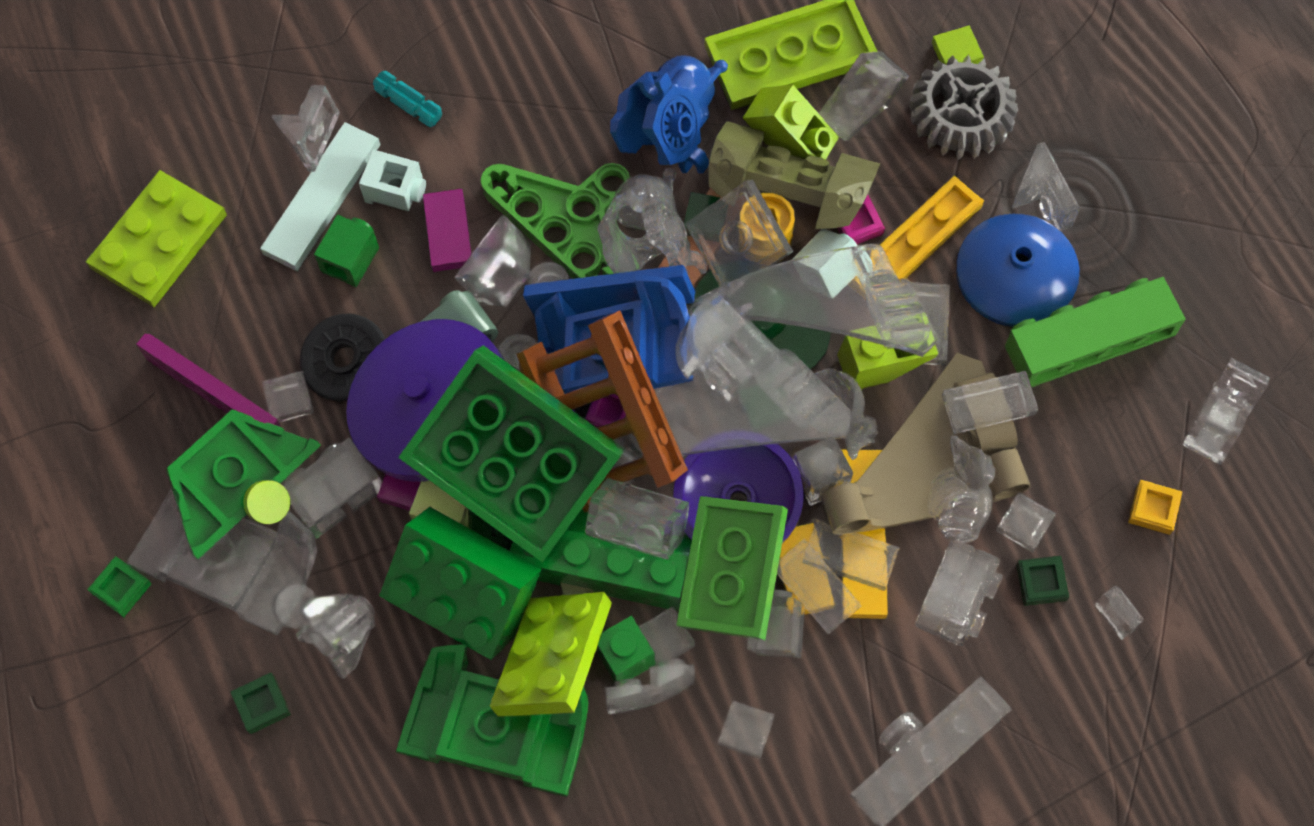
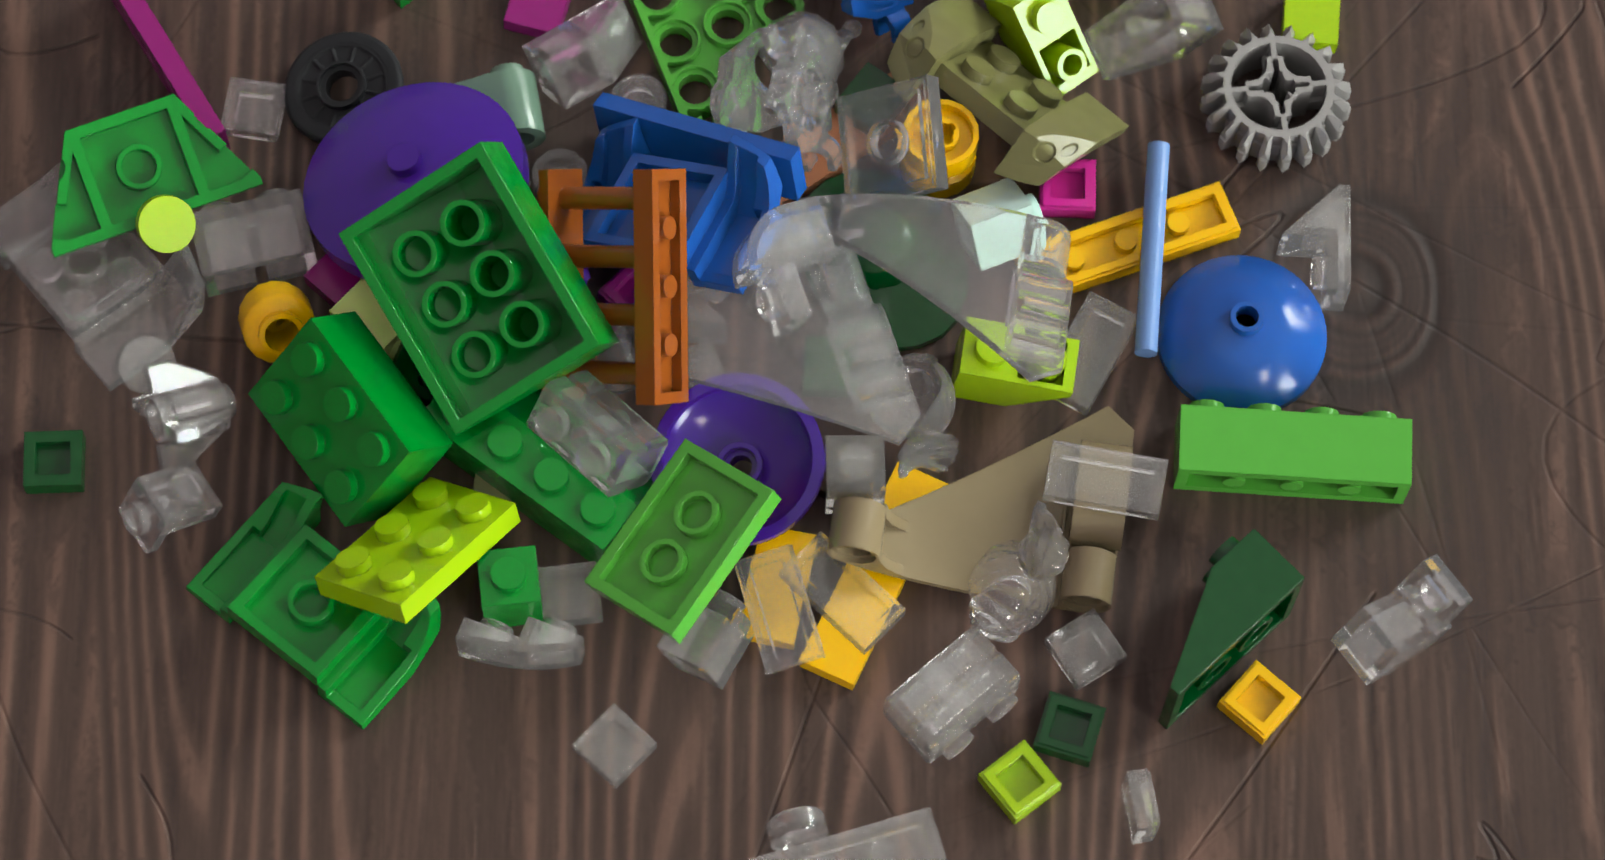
camera: 20 degrees right, 0 degrees up
(356, 698) = (167, 503): none -> clear bracket
(373, 536) = (273, 317): none -> yellow head
(936, 237) = (1152, 249): none -> medium blue bar
(1028, 631) = (1019, 782): none -> lime tile
(1113, 461) = (1242, 603): none -> dark green slope

